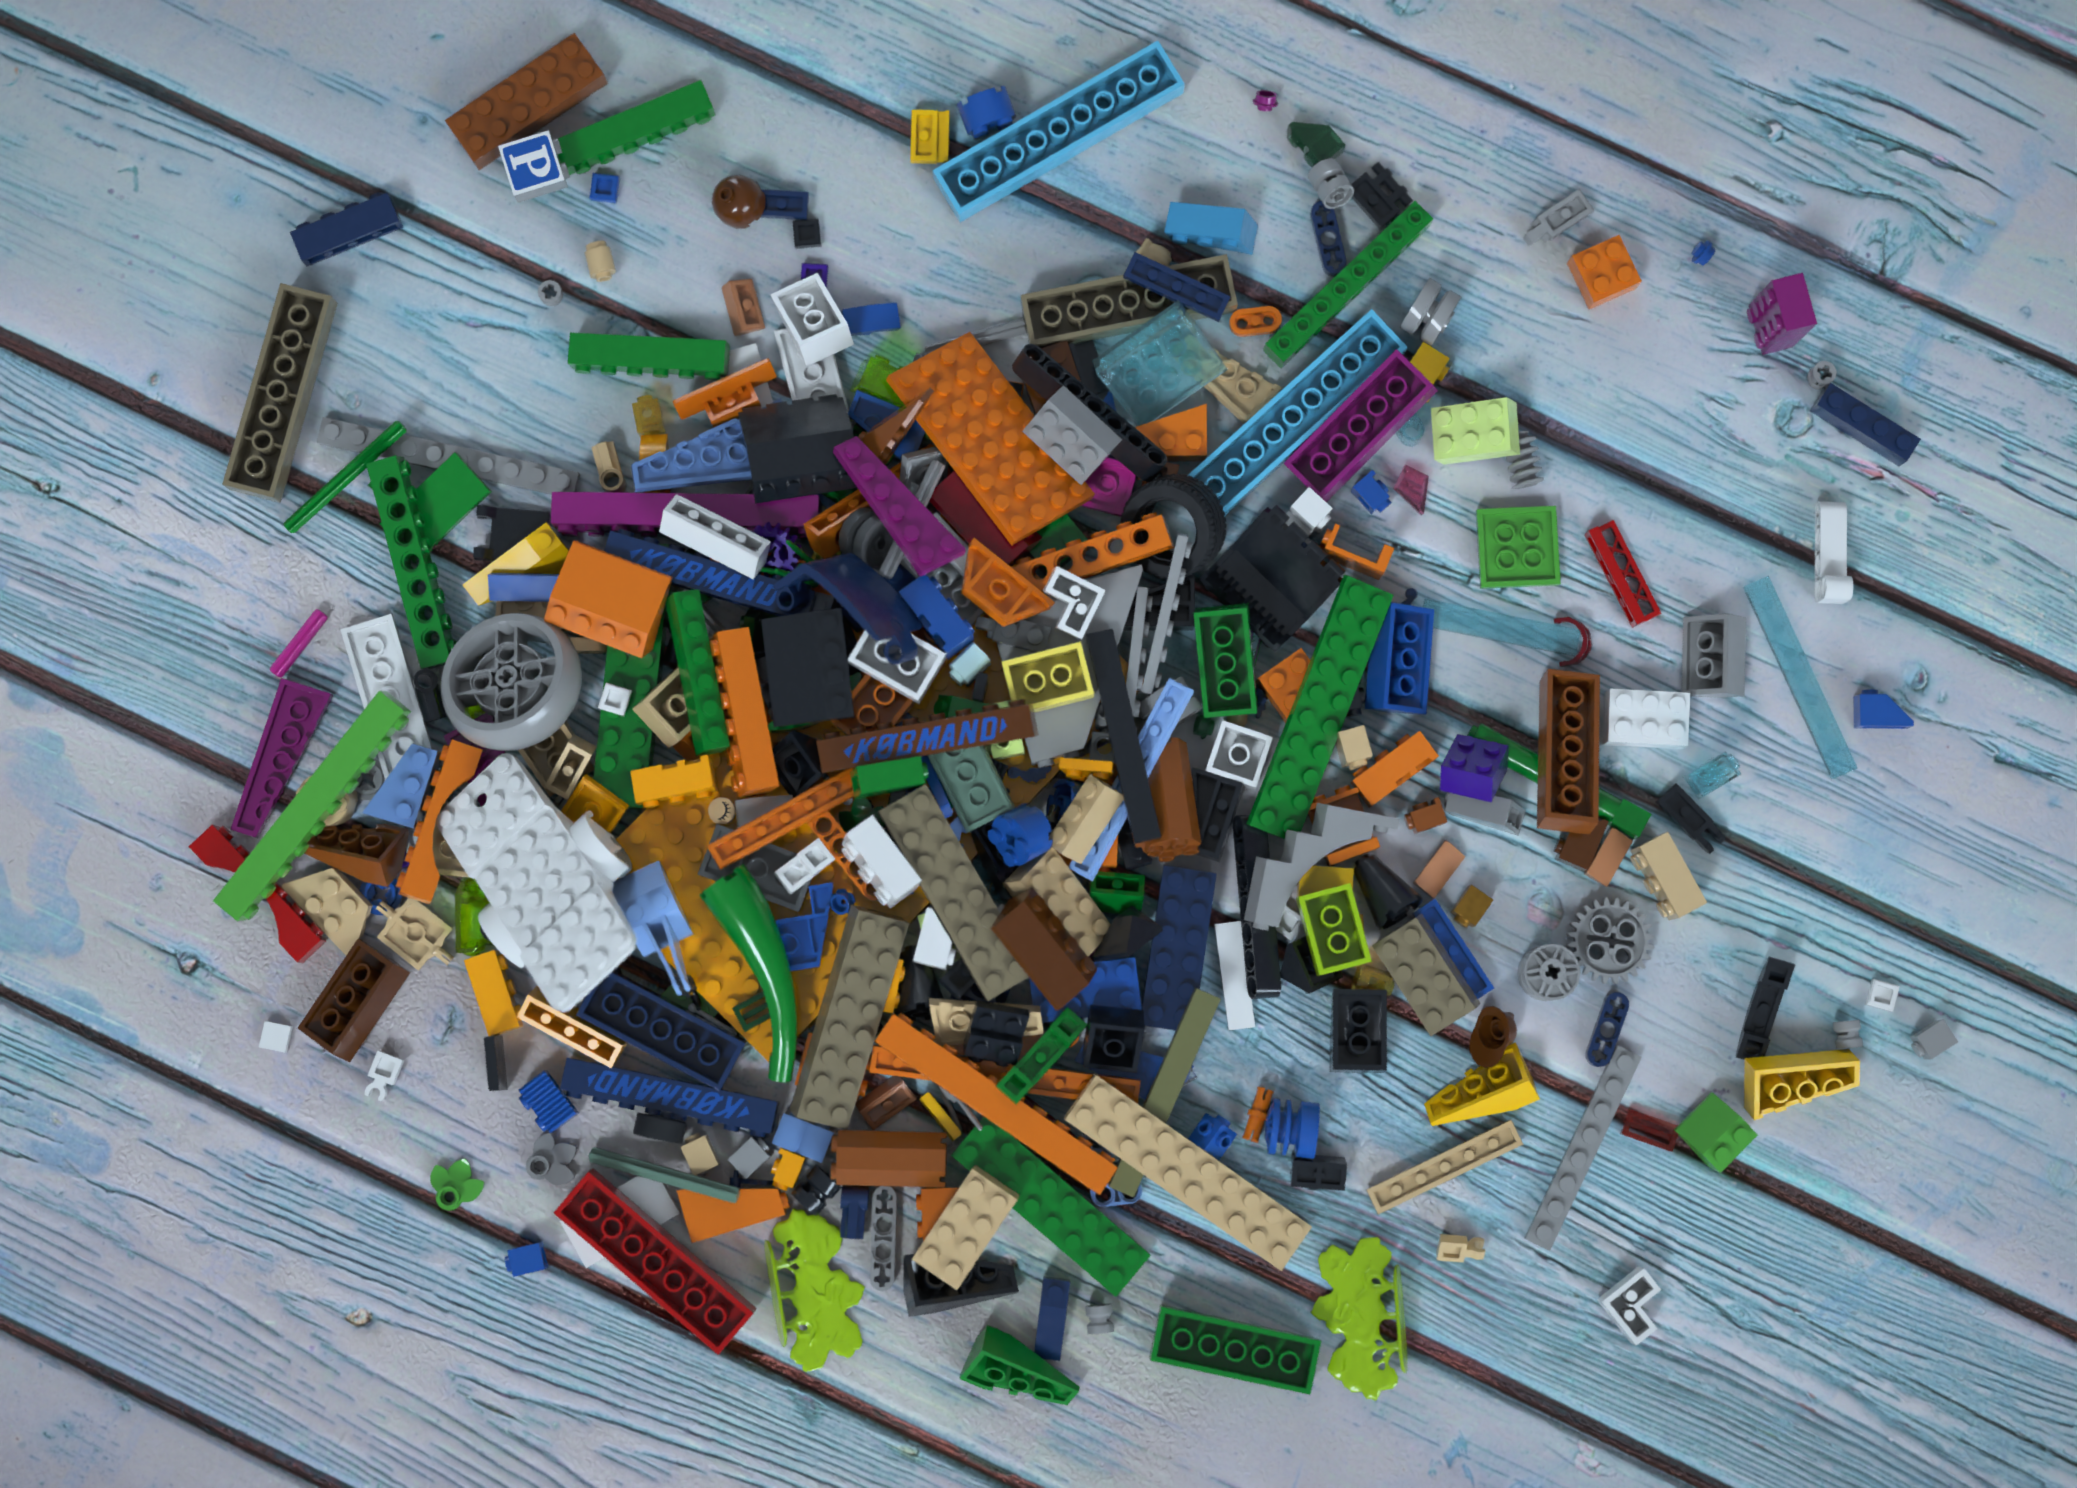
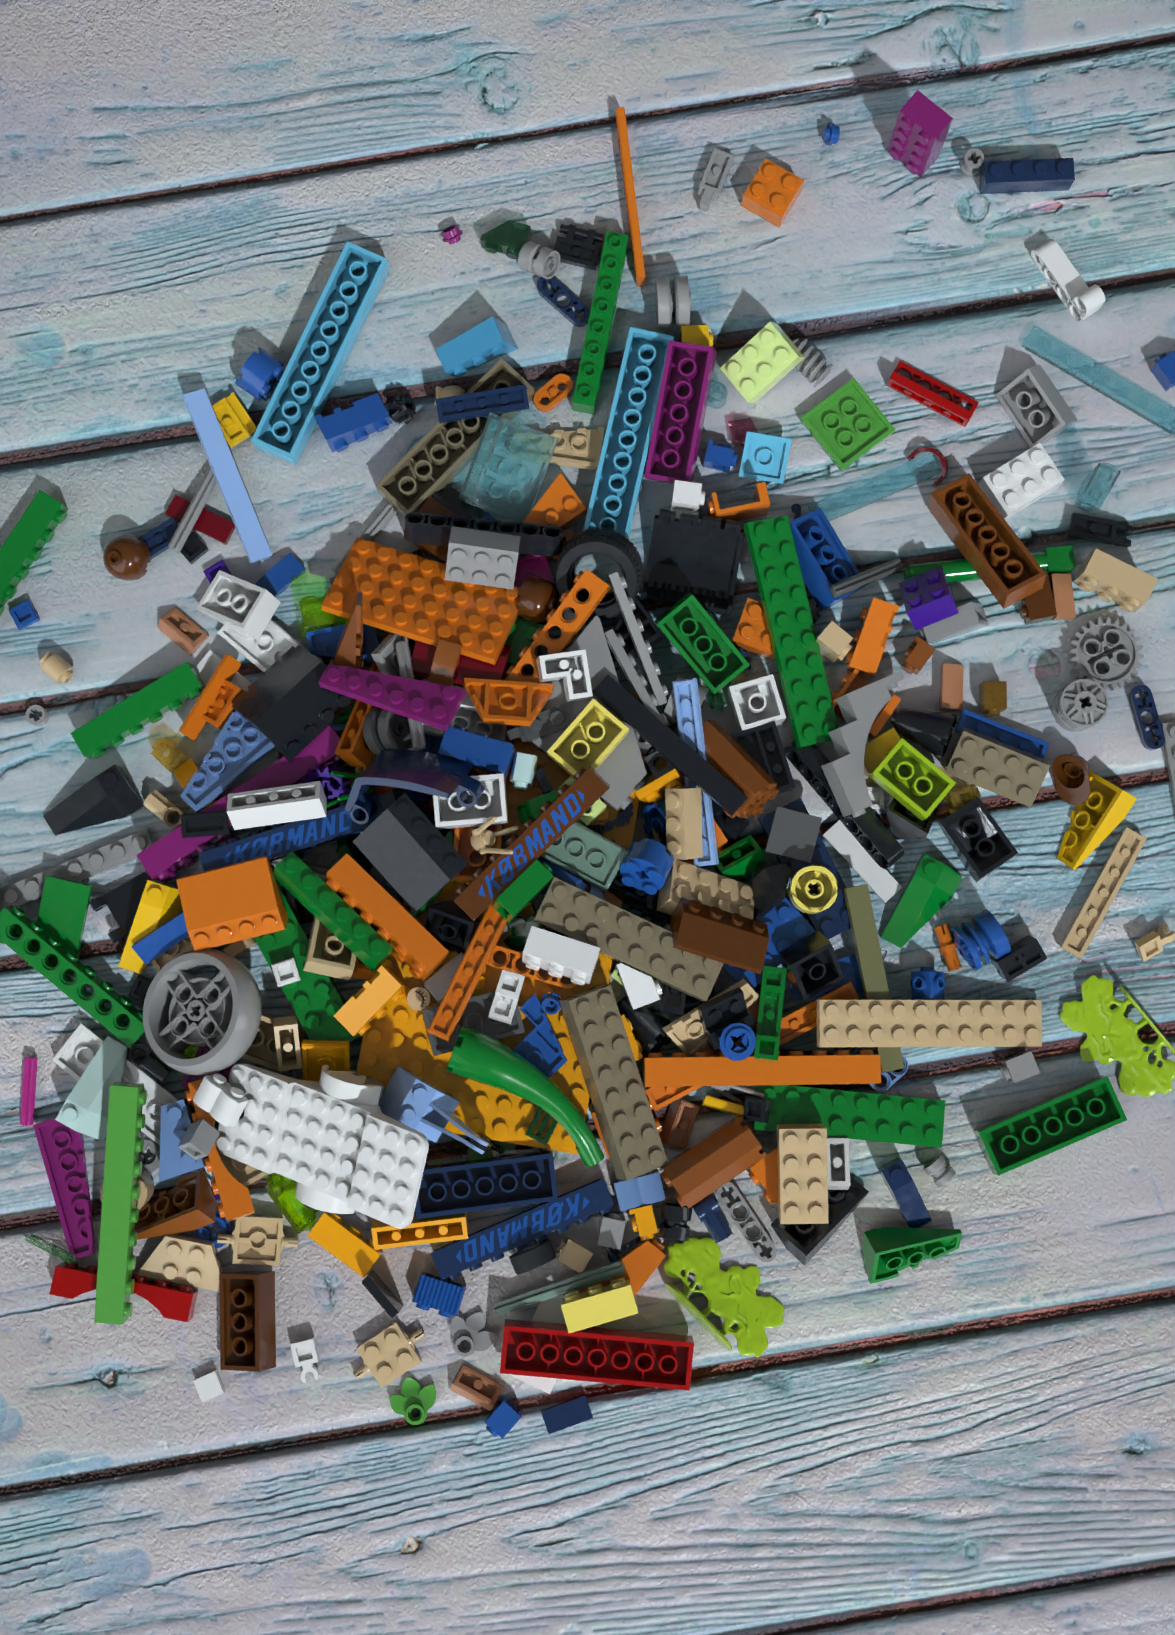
camera: 30 degrees left, 0 degrees up
(220, 801) = (51, 1245): none -> green piece
(348, 692) = (89, 1100): none -> light aqua wedge
(426, 799) = (199, 1139): none -> light grey panel
(462, 1125) = (389, 1354): none -> tan plate
(468, 619) = (140, 988): none -> black tile
(471, 775) = (220, 1099): none -> white brick
(522, 1213) = (476, 1387): none -> nougat slope
(554, 415) = (98, 801): none -> black wedge
(589, 1298) = (566, 1414): none -> dark blue tile
(635, 507) = (205, 824): none -> black tile
(689, 1214) = (599, 1304): none -> light yellow brick
(833, 212) = (207, 522): none -> dark red tile
(842, 194) = (193, 512): none -> light grey axle
(885, 703) = (484, 839): none -> tan plant
(887, 188) = (227, 476): none -> light blue tile
(966, 511) = (445, 662): none -> dark orange slope
(966, 1137) = (756, 1109): none -> black tile
(1001, 1064) = (747, 1040): none -> blue gear
(1005, 1242) = (838, 1163): none -> white brick
(1043, 219) = (354, 423): none -> blue wedge
(1097, 510) = (537, 599): none -> reddish brown cylinder
(1098, 238) = (402, 409): none -> black gear
(1172, 954) = (826, 889): none -> light yellow brick
(1183, 903) = (793, 834): none -> dark grey tile
(1245, 1275) = (1019, 1067): none -> light grey brick
(1270, 1050) = (924, 895): none -> green wedge
(1414, 523) = (765, 457): none -> medium azure plate
(1429, 707) = (866, 577): none -> dark grey axle
(1463, 181) = (630, 197): none -> orange tile

